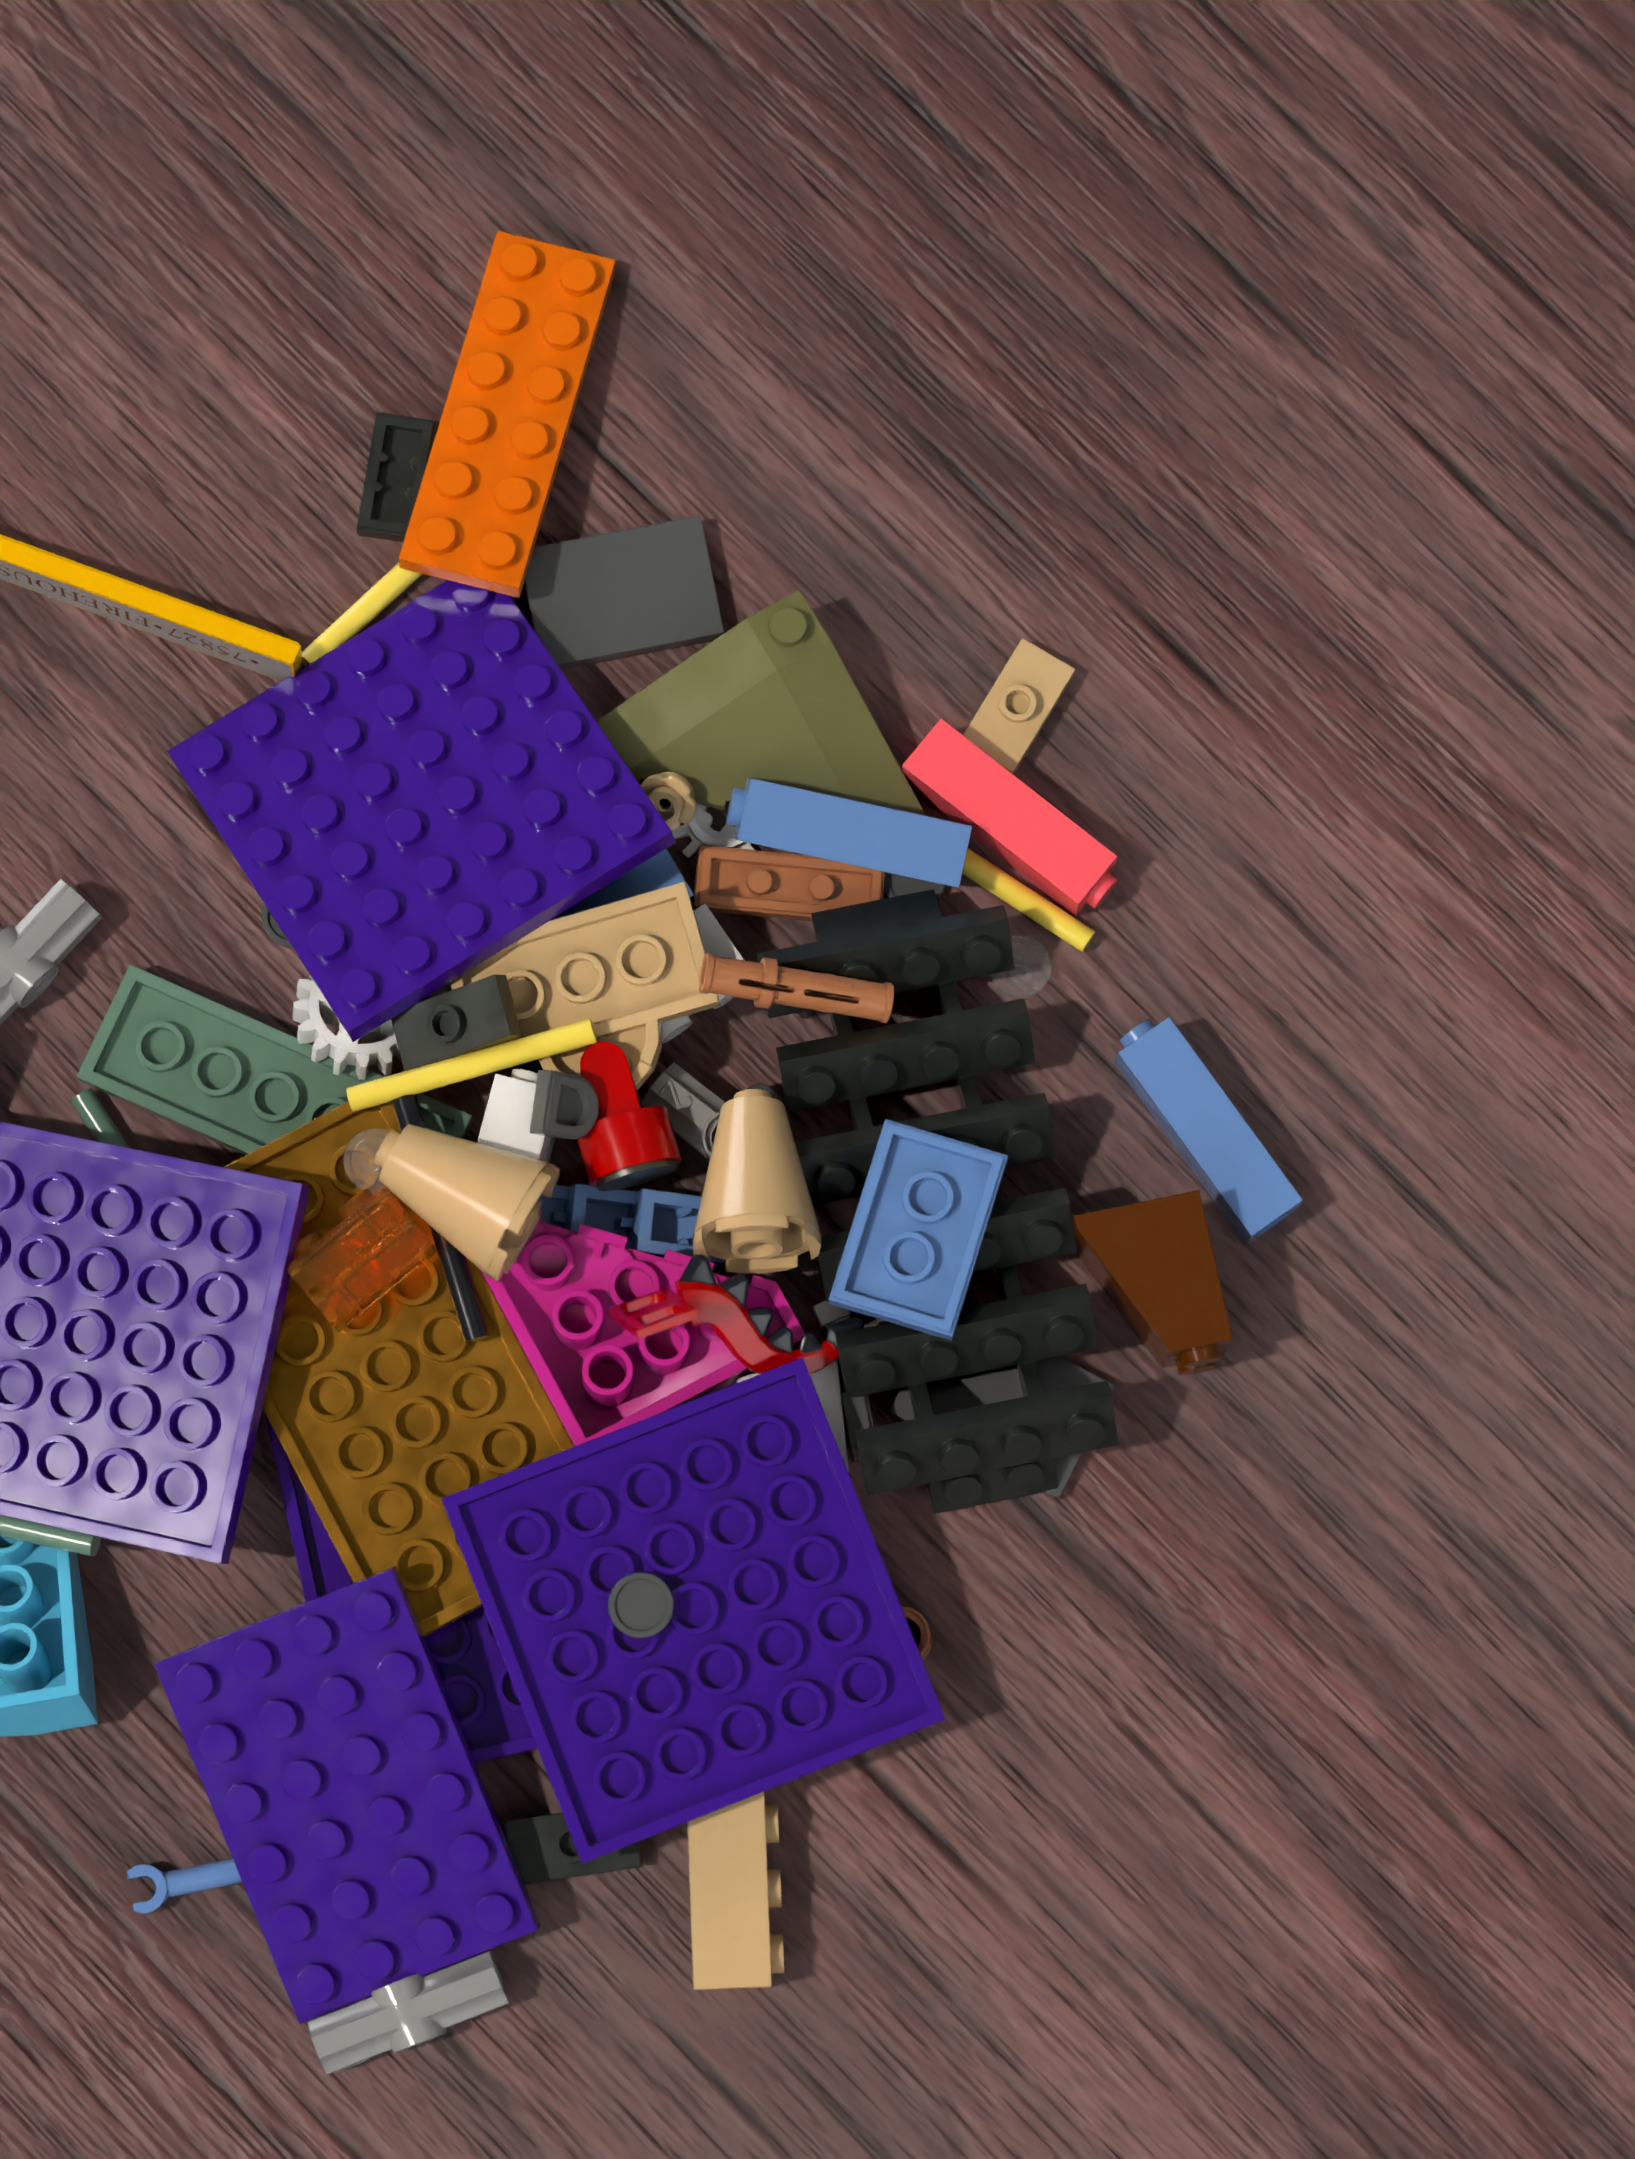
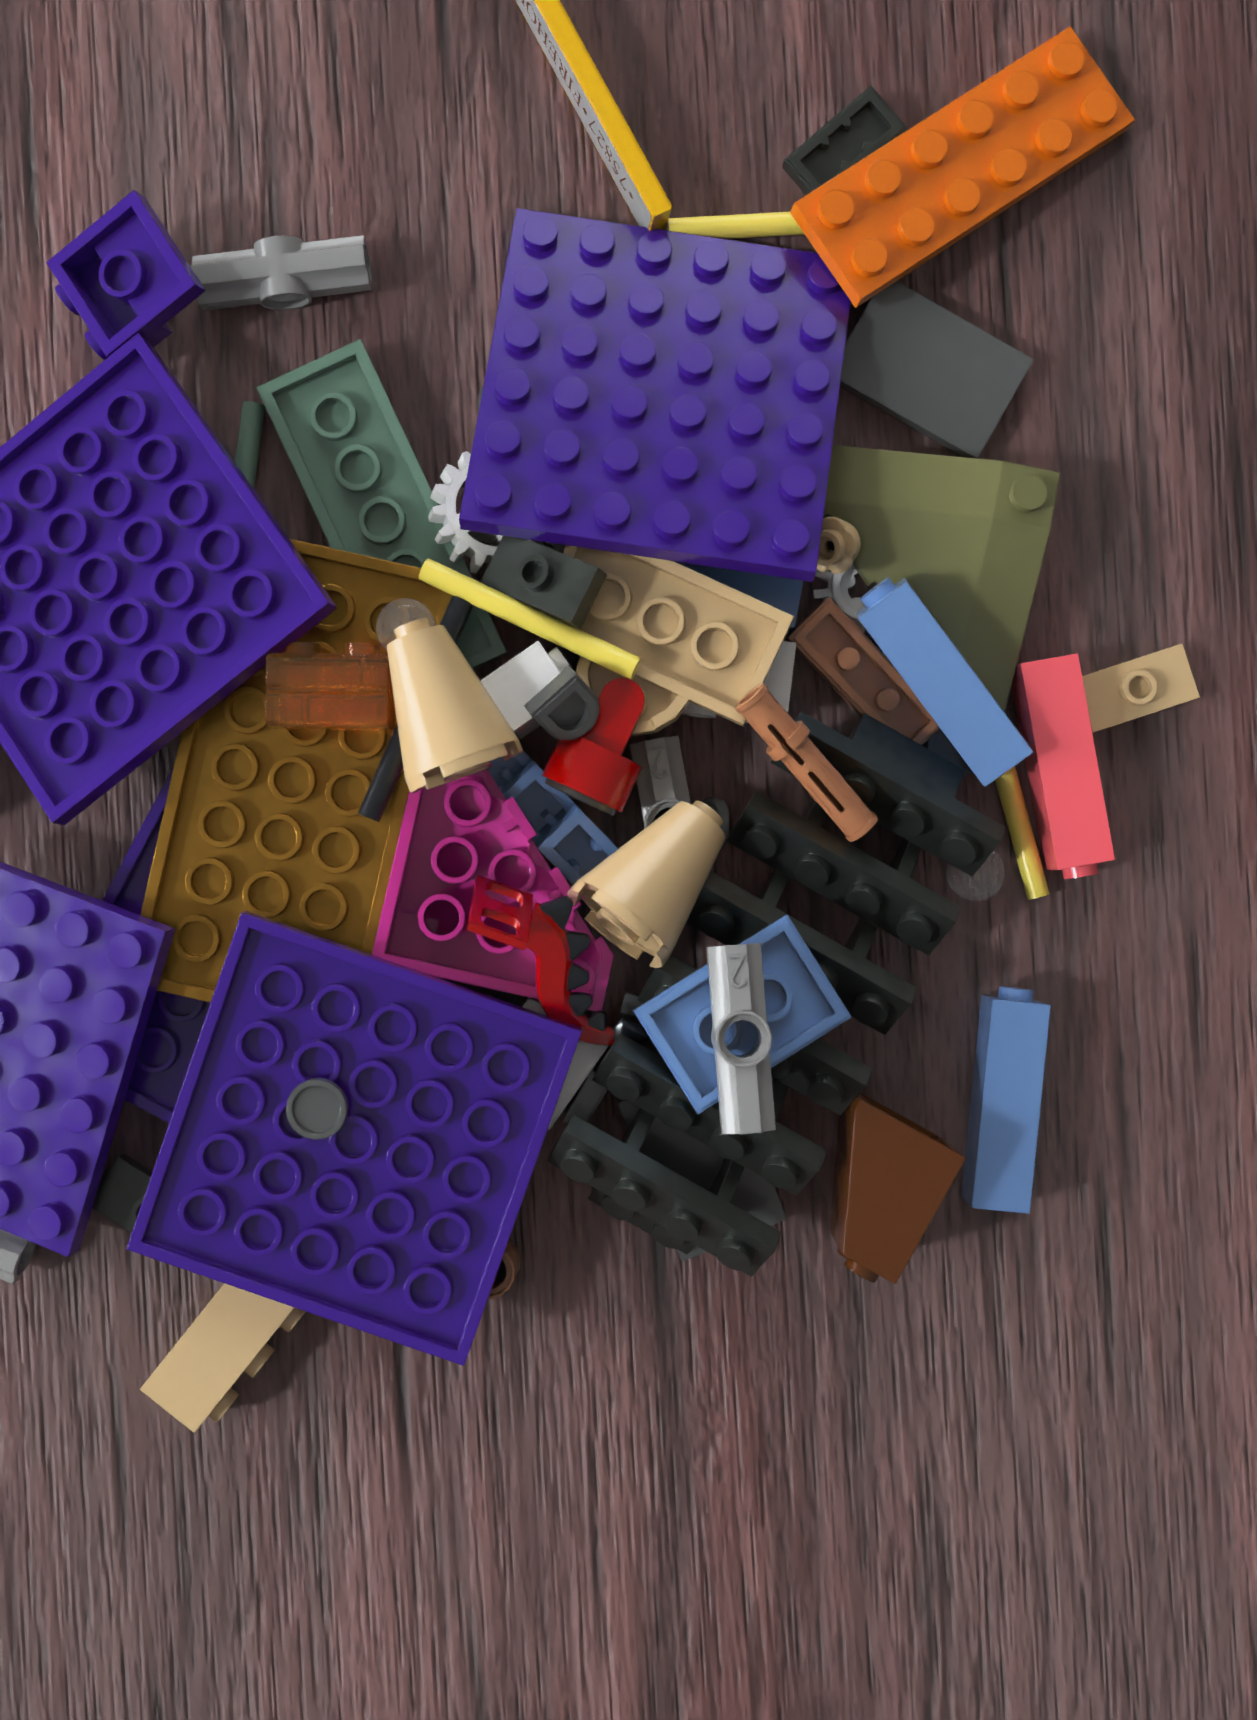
camera: 40 degrees right, 10 degrees up
(900, 1211) = (743, 1079): none -> light grey piece

